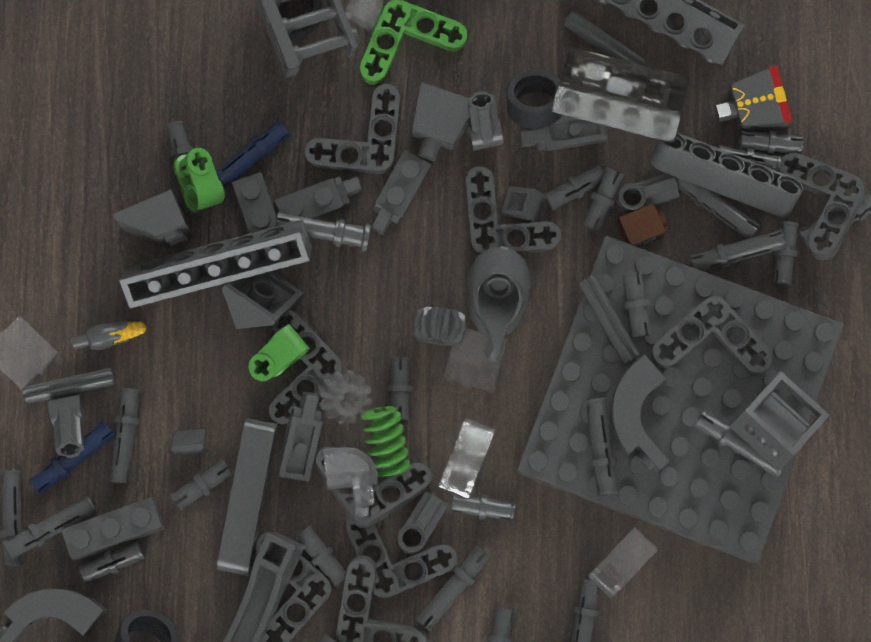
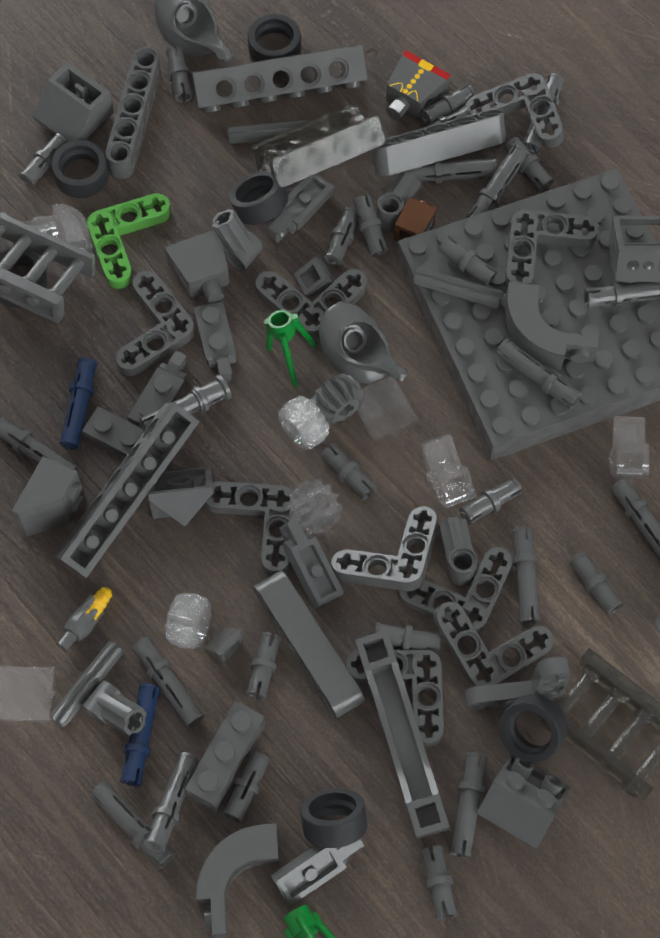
camera: 50 degrees left, 15 degrees down
(175, 405) = (188, 620): none -> clear gear
(198, 182) = (56, 442): bright green piece -> none
(280, 352) = (236, 510): bright green piece -> none
(351, 468) = (376, 546): clear brick -> none
(387, 440) = (376, 509): bright green piece -> none
(396, 323) = (303, 422): none -> clear gear
(444, 236) = (281, 327): none -> green plant

